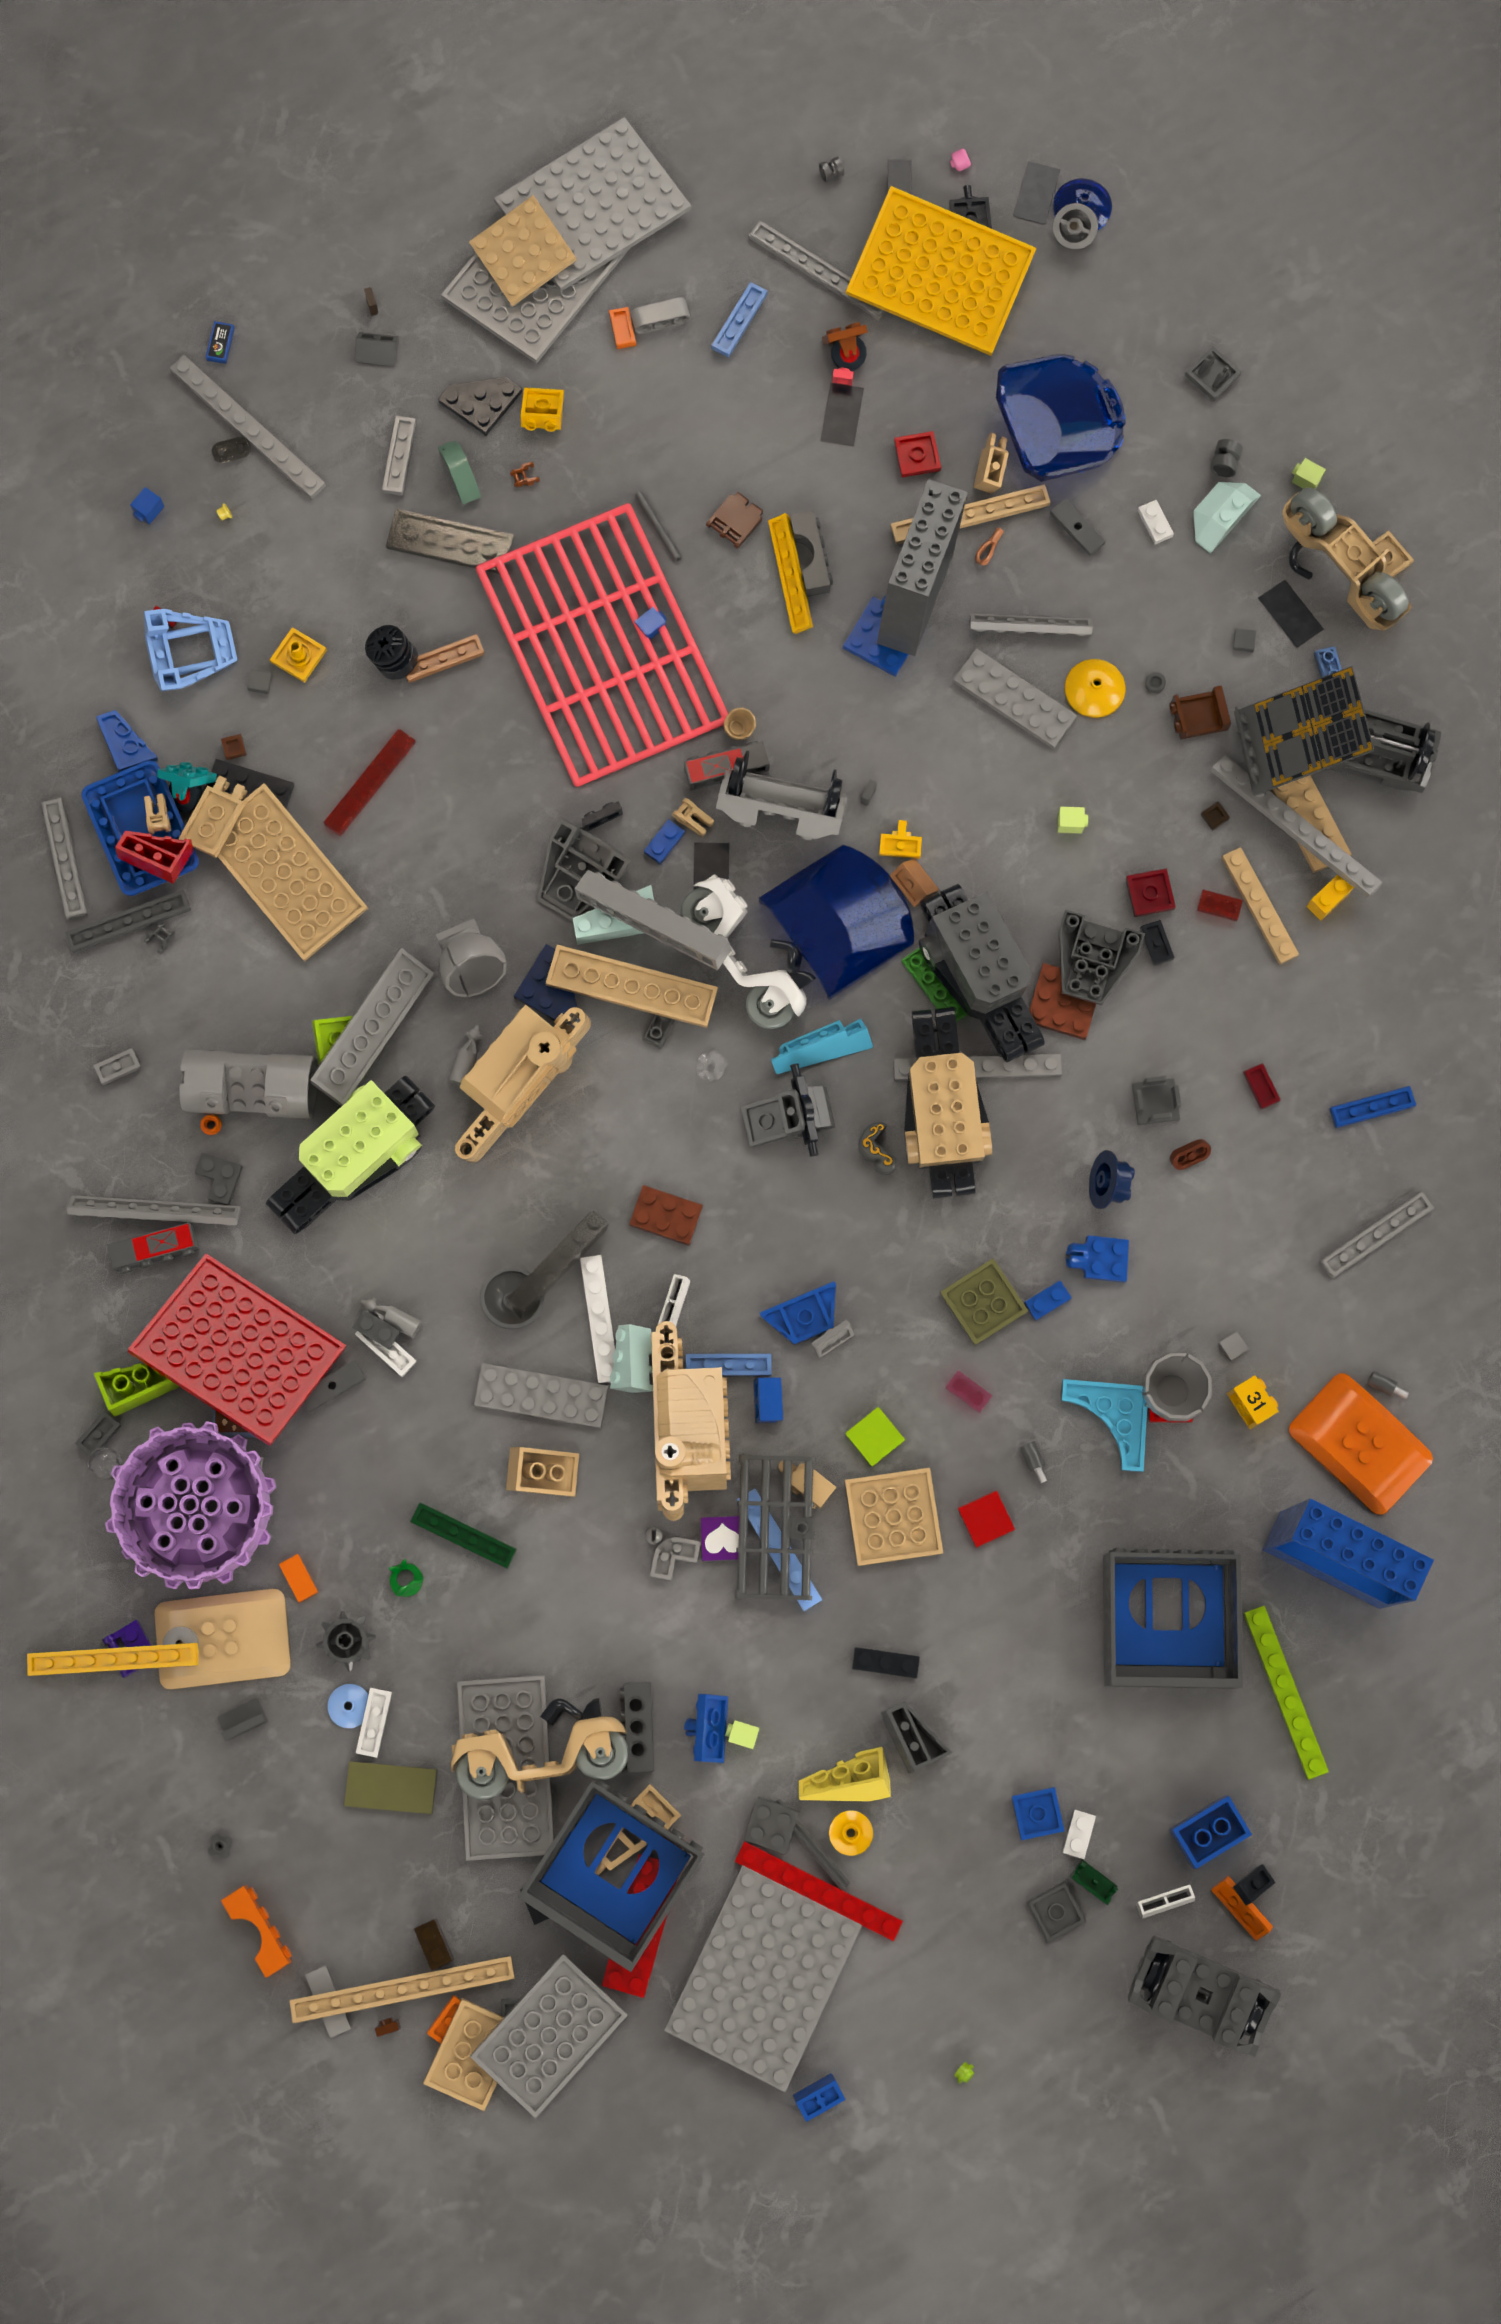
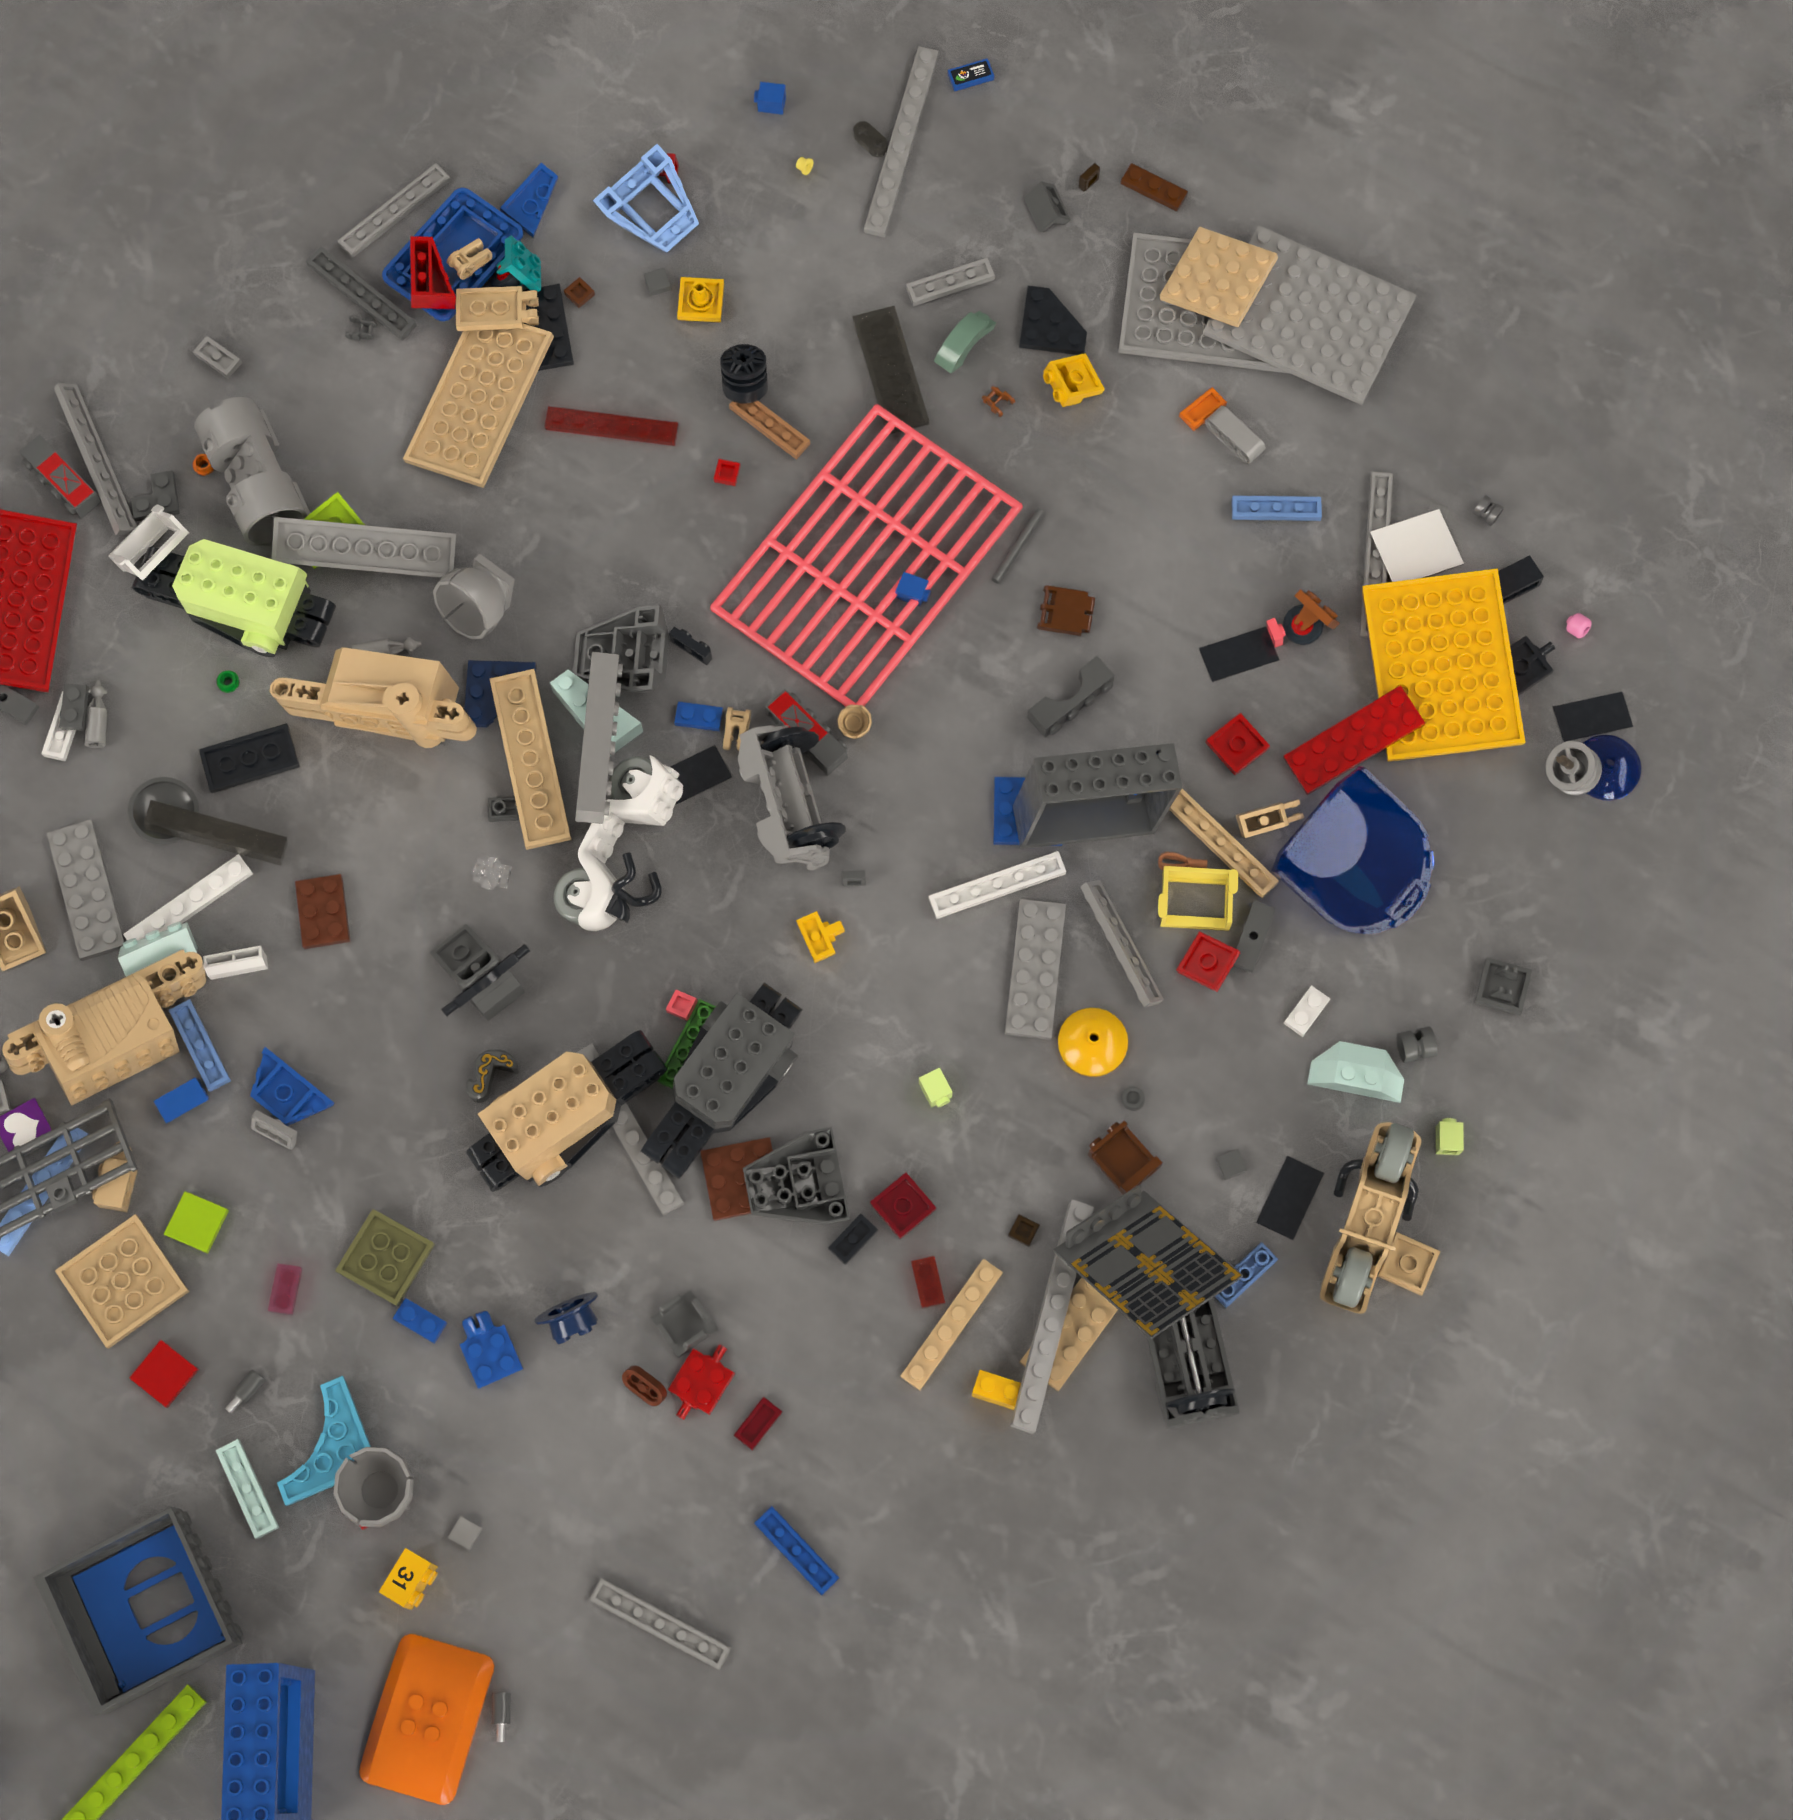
camera: 65 degrees right, 5 degrees down
(251, 1204) = (145, 536): none -> white piece
(407, 259) = (1154, 187): none -> reddish brown plate
(421, 1190) = (223, 677): none -> green plate
(468, 711) = (727, 472): none -> red tile
(500, 1210) = (249, 758): none -> black plate
(790, 573) = (1036, 690): yellow plate -> none
(823, 1045) = (570, 969): medium azure wedge -> none
(830, 237) = (1417, 547): none -> white sticker
(843, 917) = (710, 919): clear blue windscreen -> none
(900, 975) = (681, 1005): none -> coral plate
(913, 881) = (787, 969): medium nougat panel -> none
(932, 690) = (997, 884): none -> white plate
(963, 368) = (1354, 740): none -> red plate
(1031, 522) = (1201, 876): none -> light yellow piece
(1080, 569) = (1208, 961): none -> red tile
(1114, 1495) = (247, 1489): none -> light aqua plate
(1208, 1111) = (701, 1381): none -> red plate

